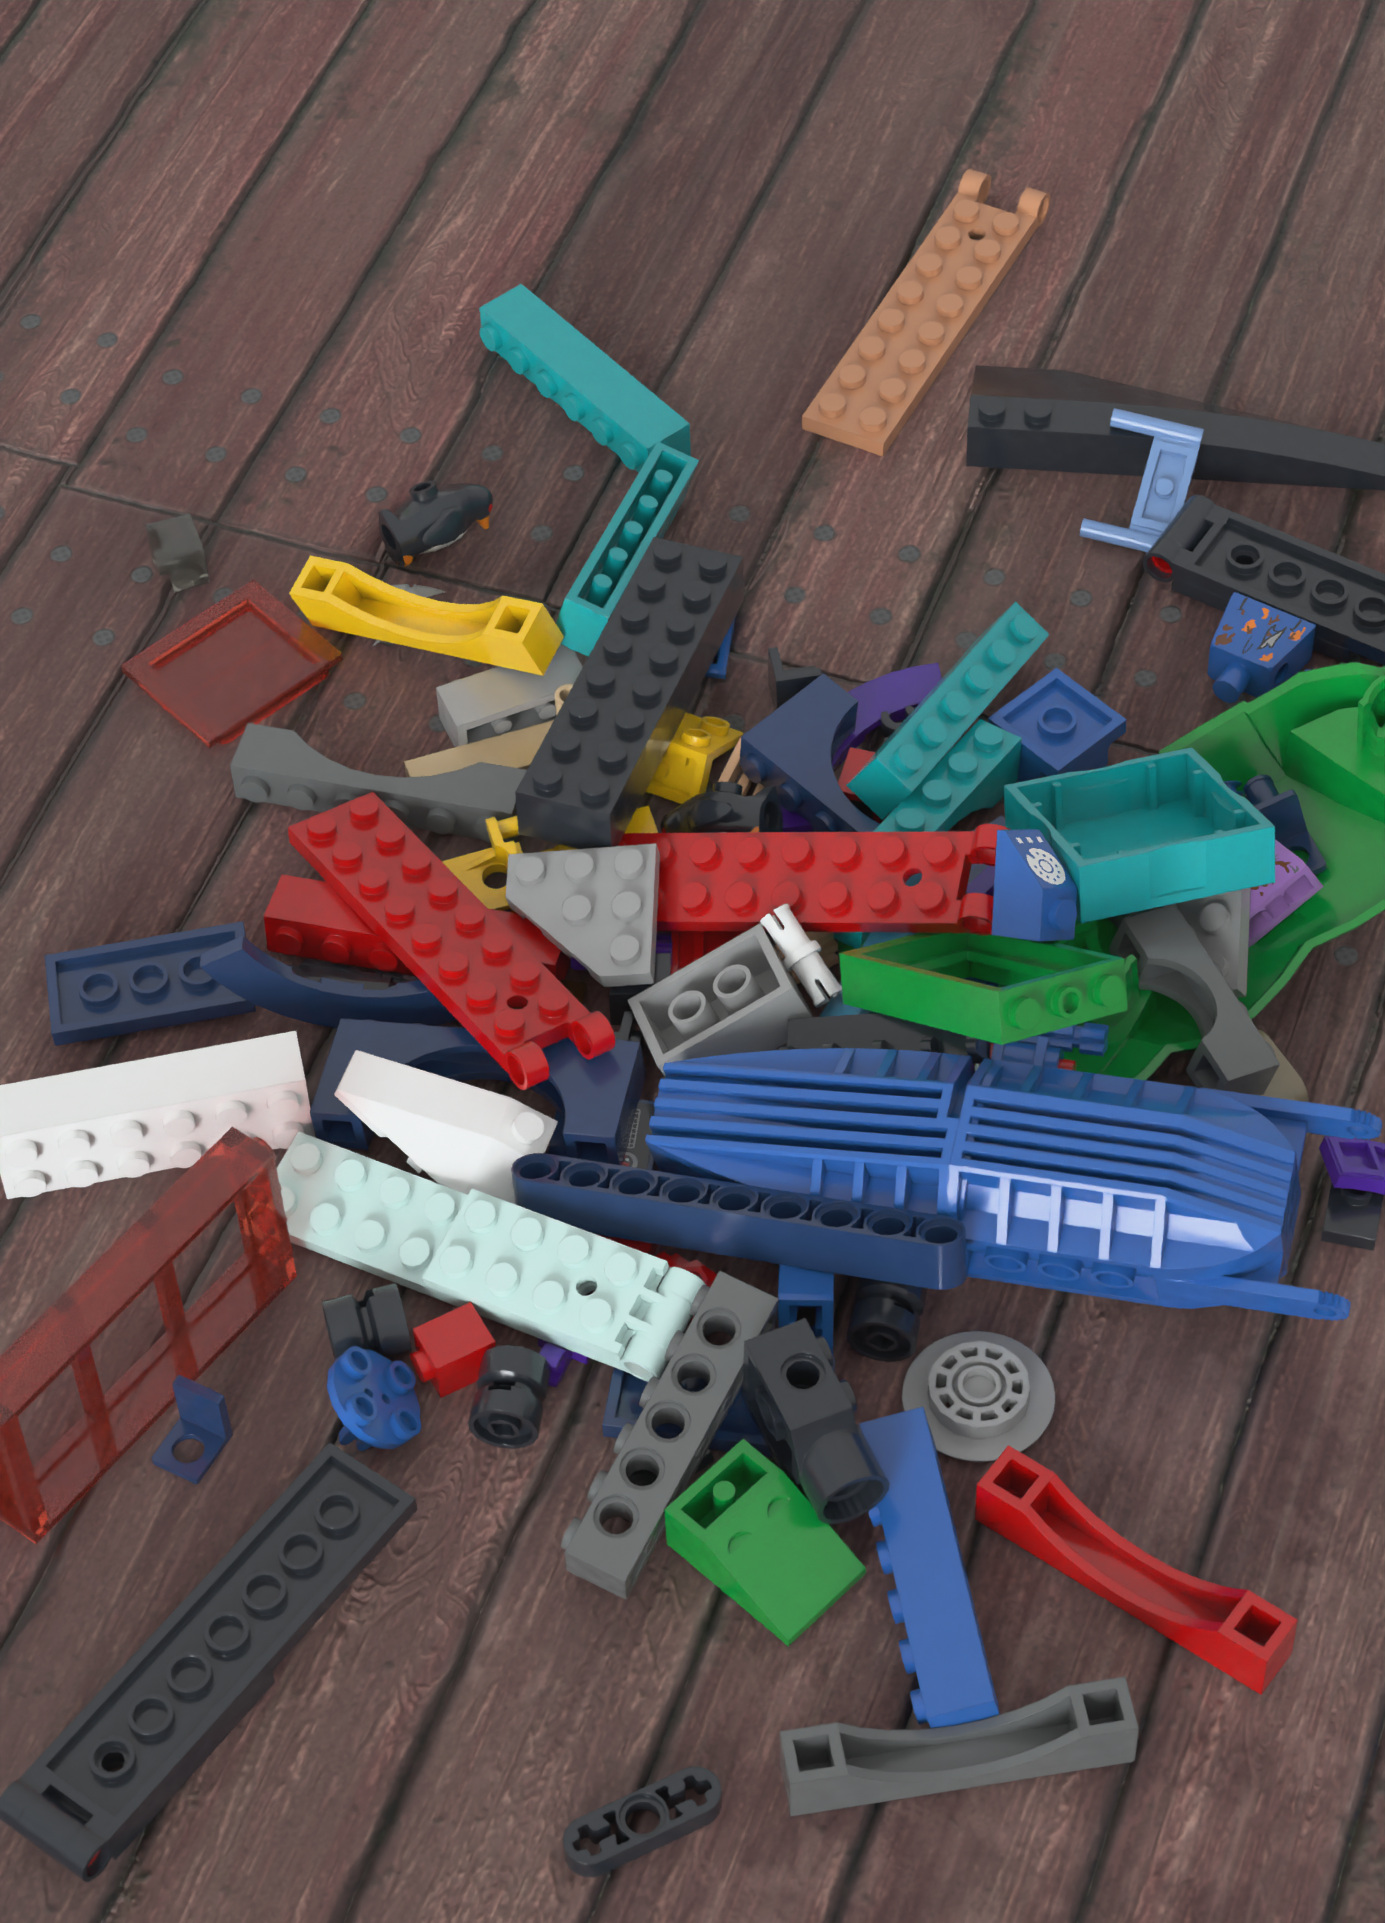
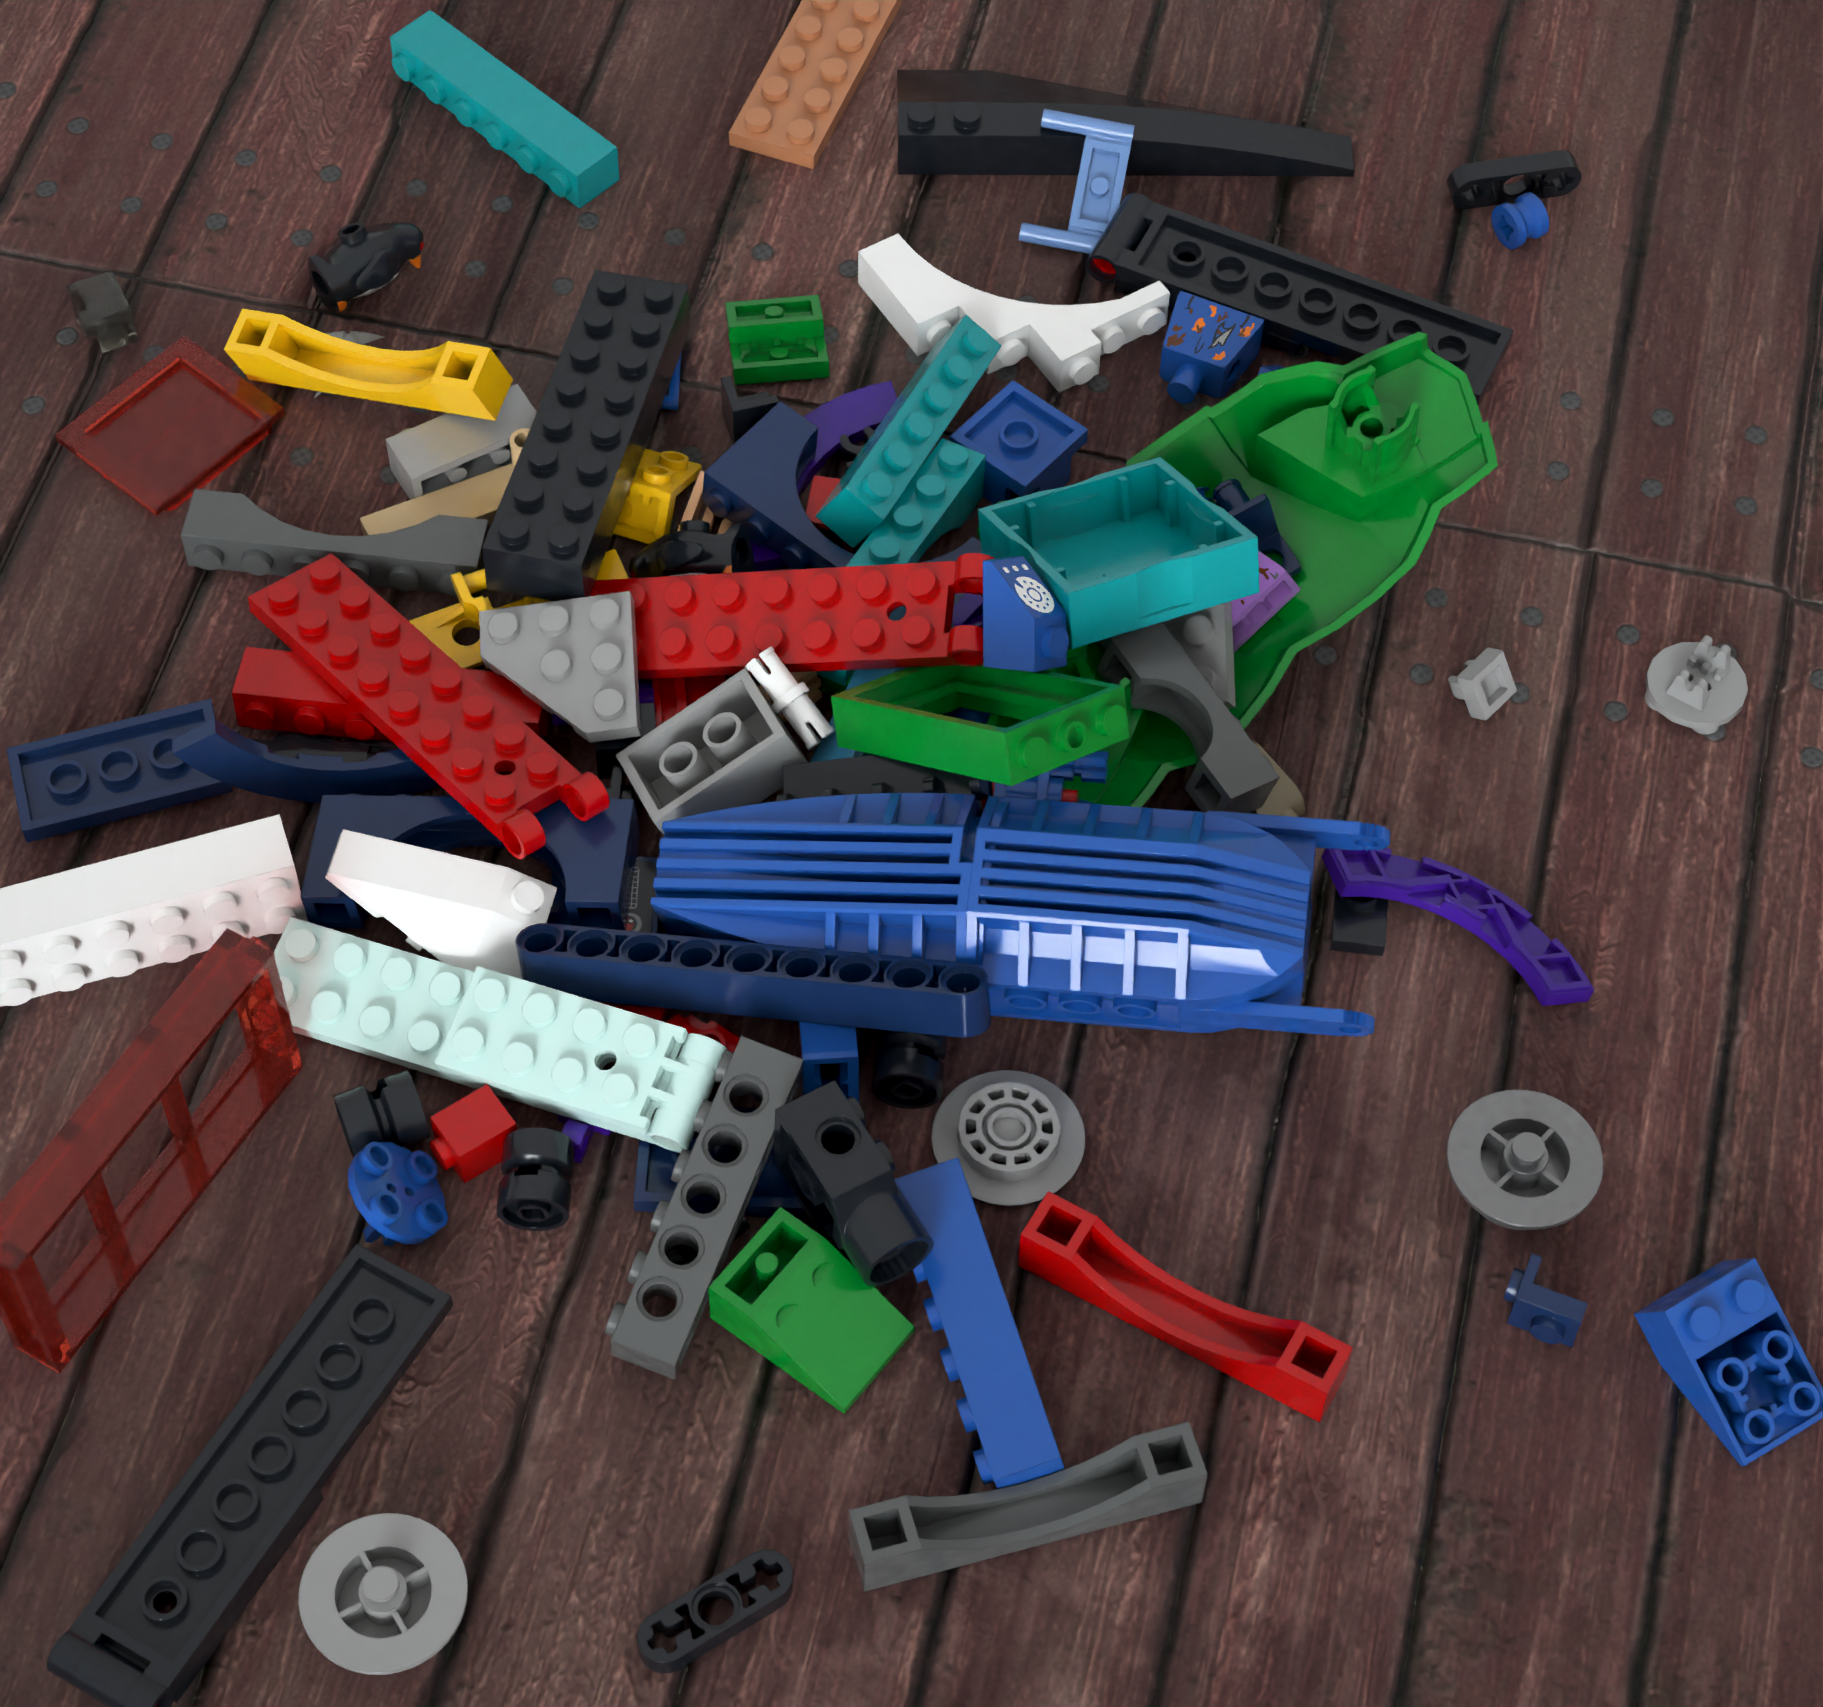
camera: 10 degrees left, 5 degrees up
(201, 1418) = (219, 1226): dark blue bracket -> none
(321, 1773) = (383, 1594): none -> light grey wheel
(640, 517) = (564, 281): teal brick -> none
(829, 617) = (777, 339): none -> green slope
(1107, 631) = (1057, 338): none -> white arch

